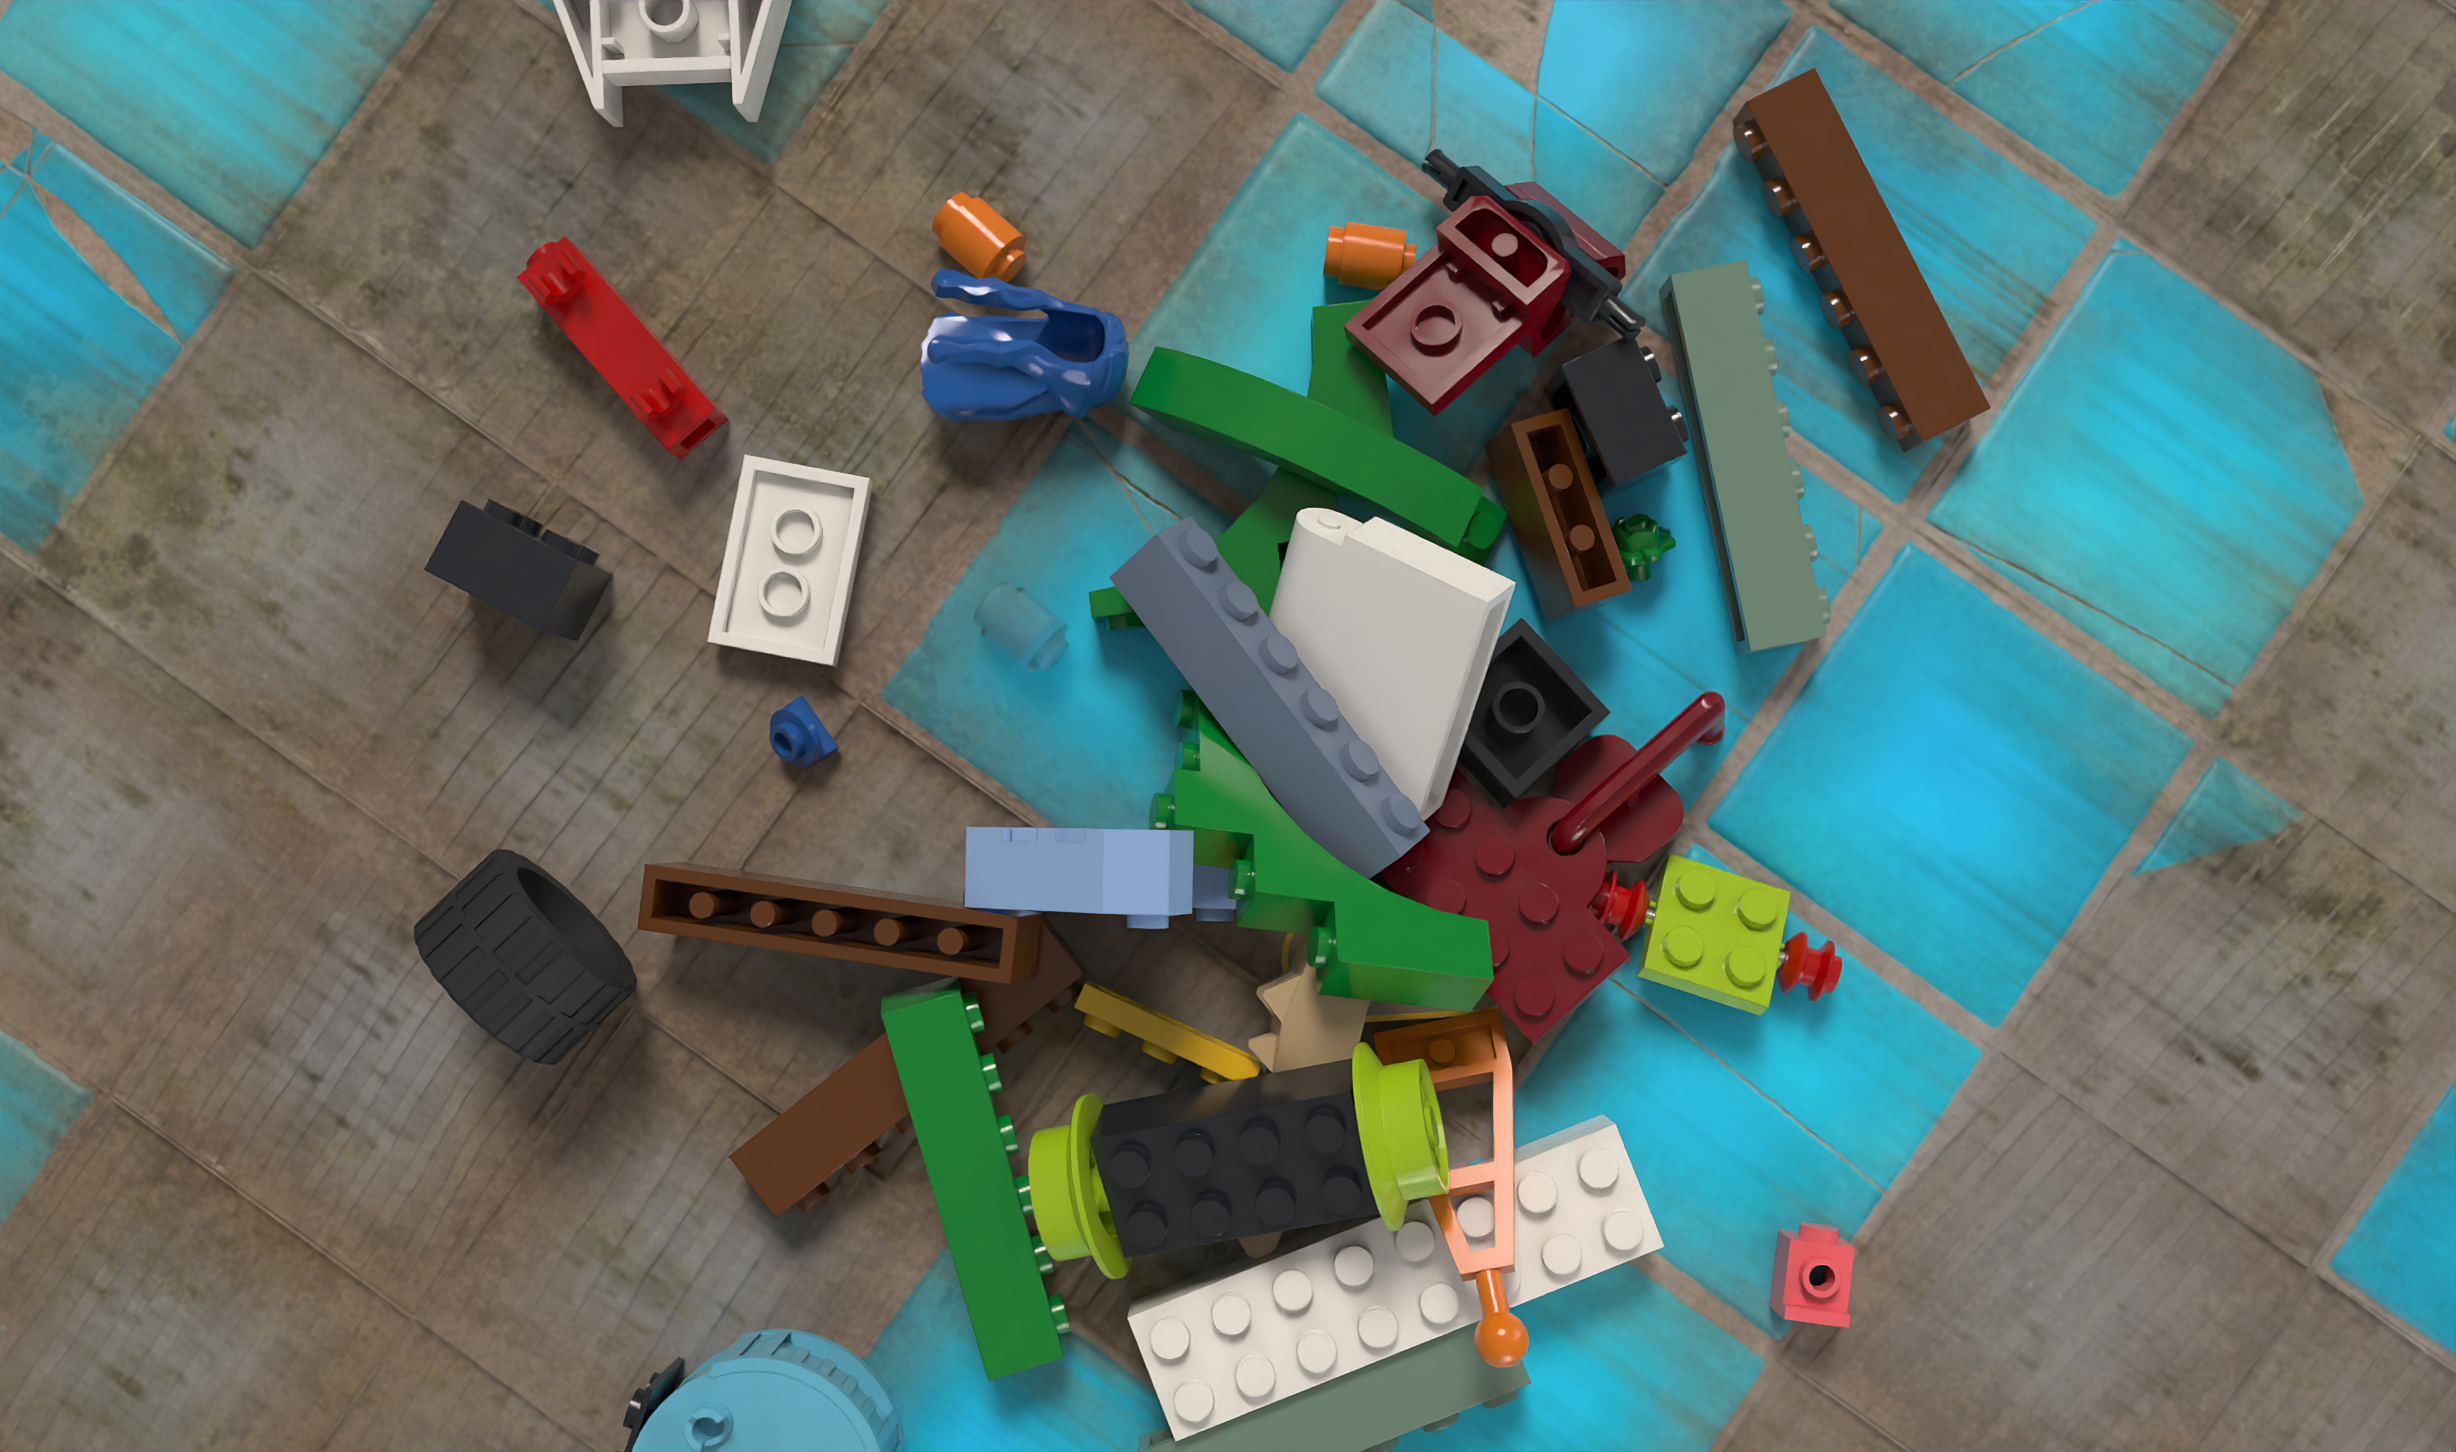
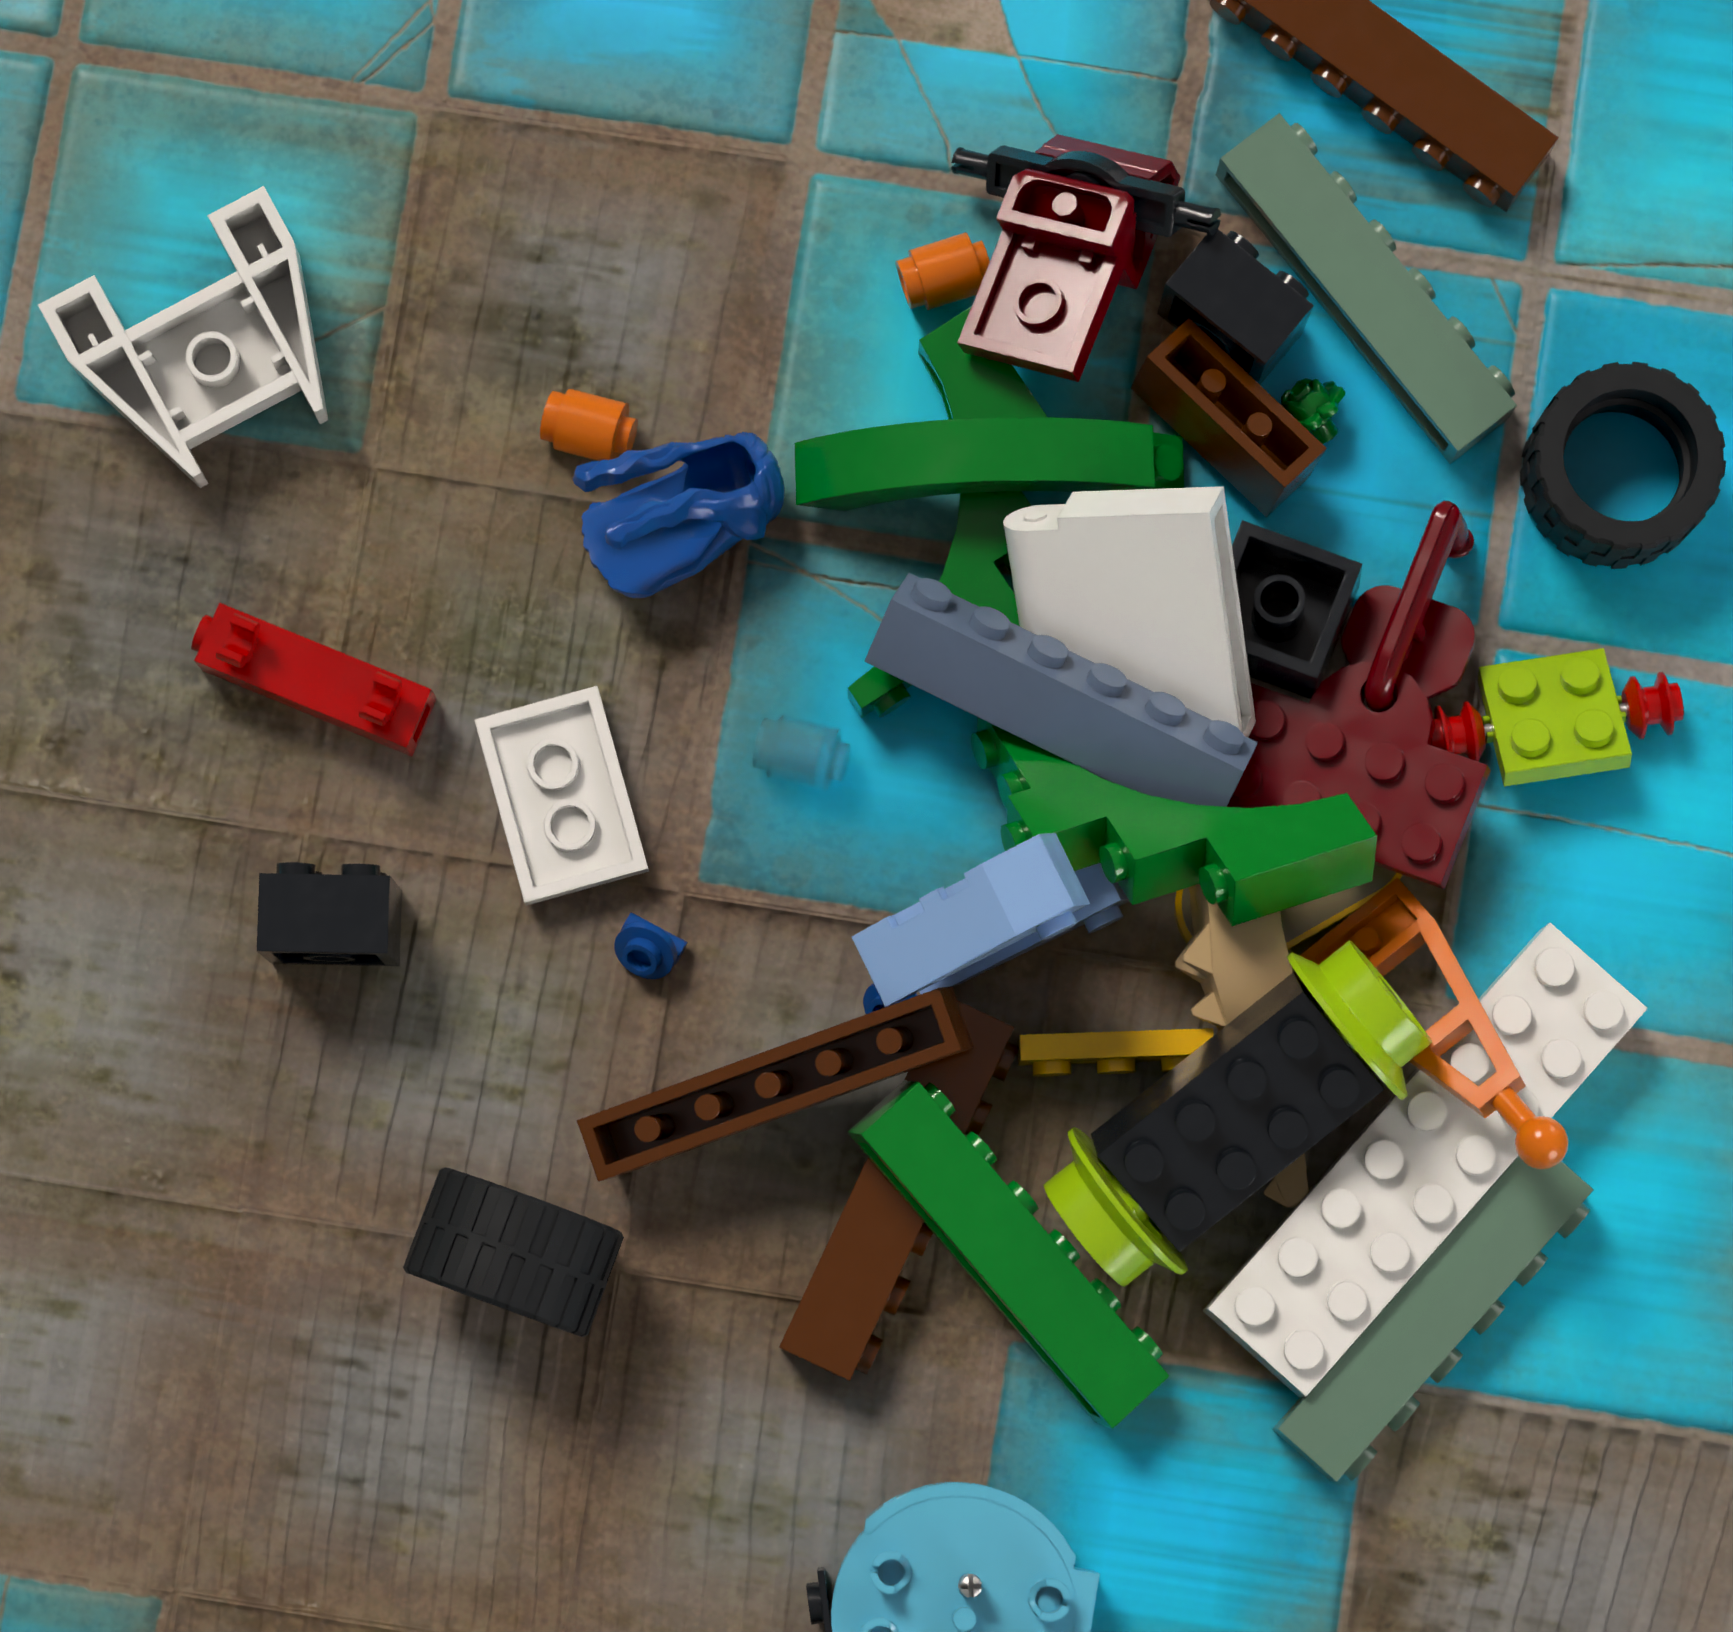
camera: 30 degrees left, 5 degrees down
(1969, 720) = (1662, 402): none -> black tyre

